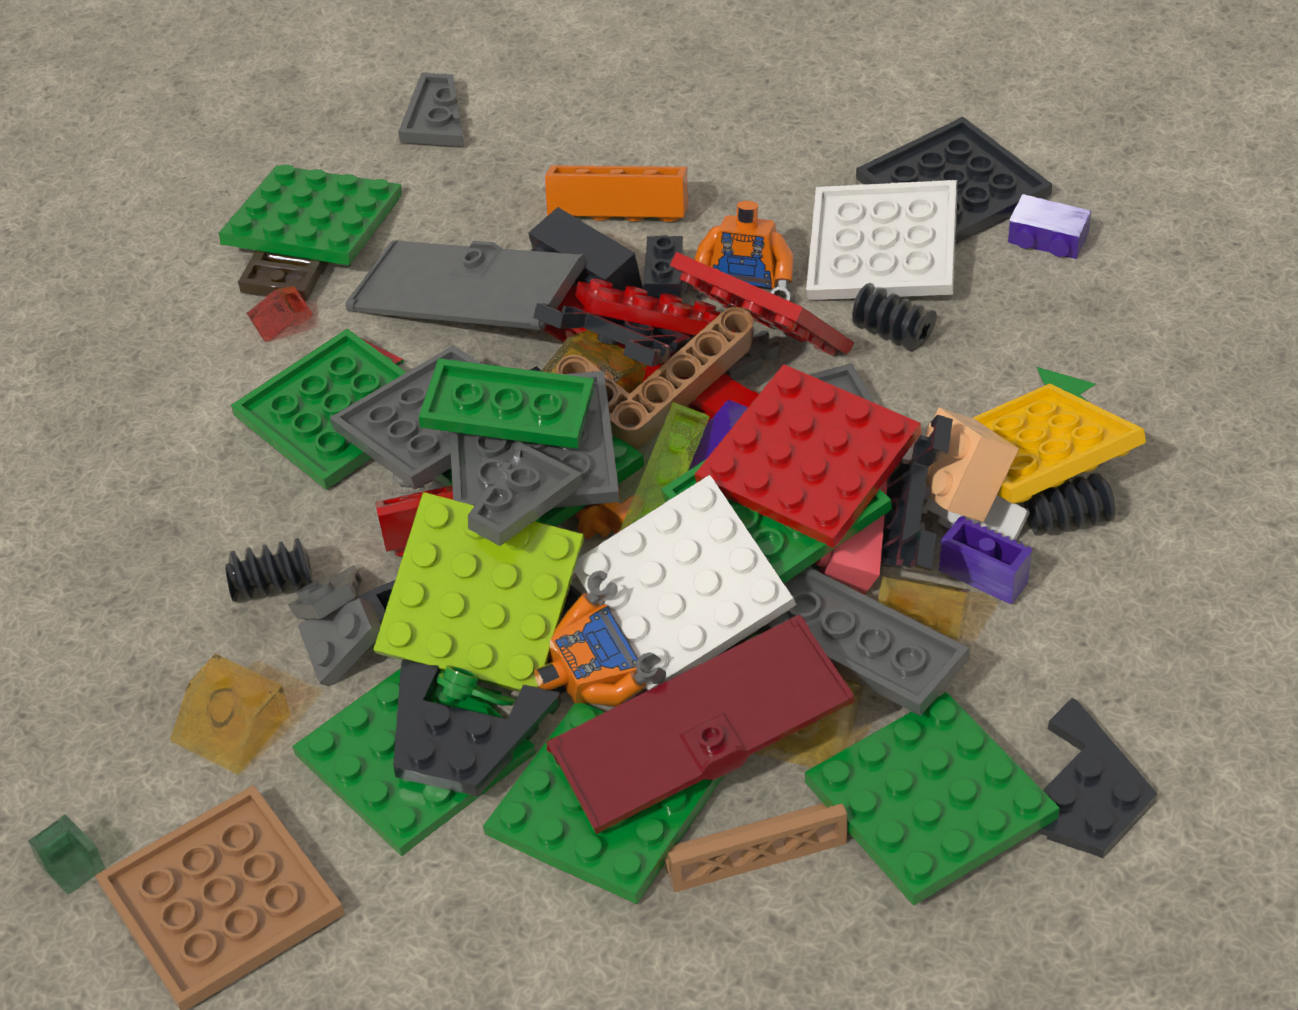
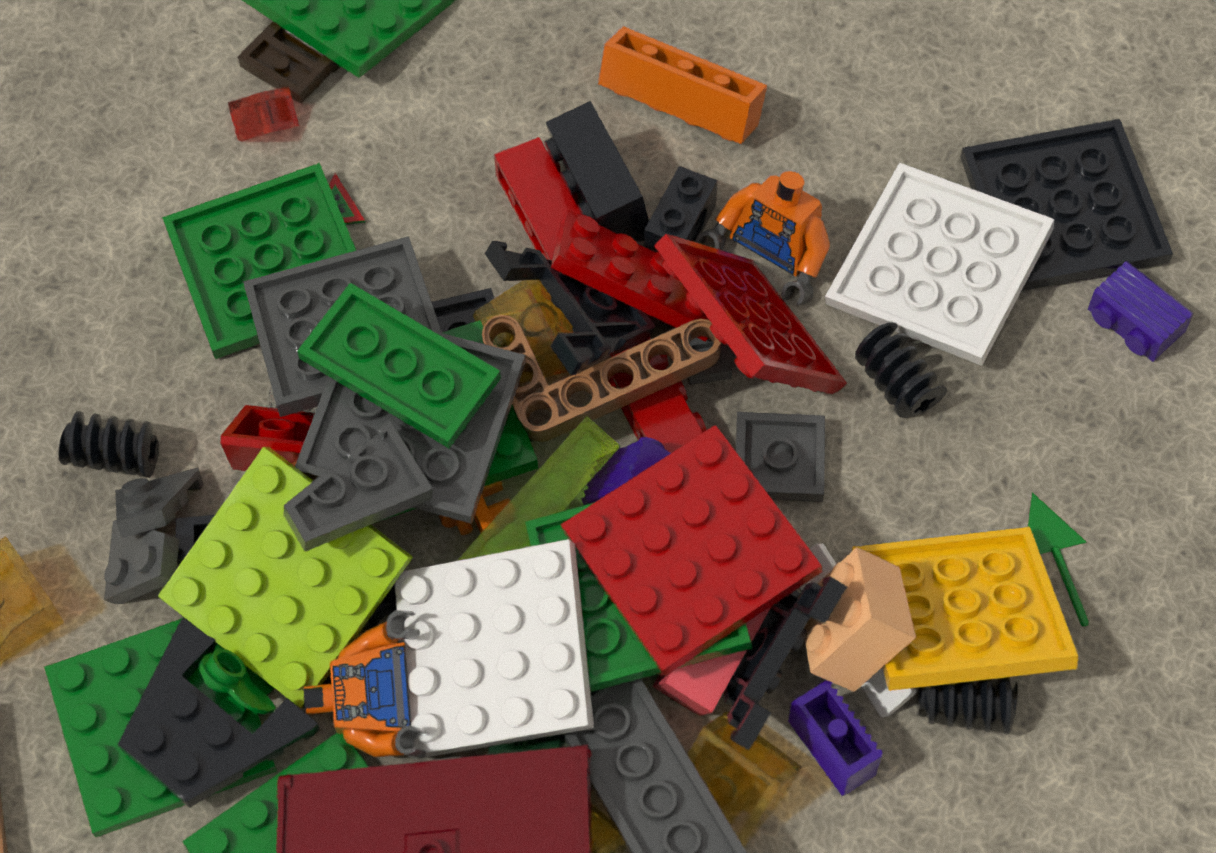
camera: 20 degrees right, 15 degrees up
(466, 283) = (462, 157): dark grey door -> none

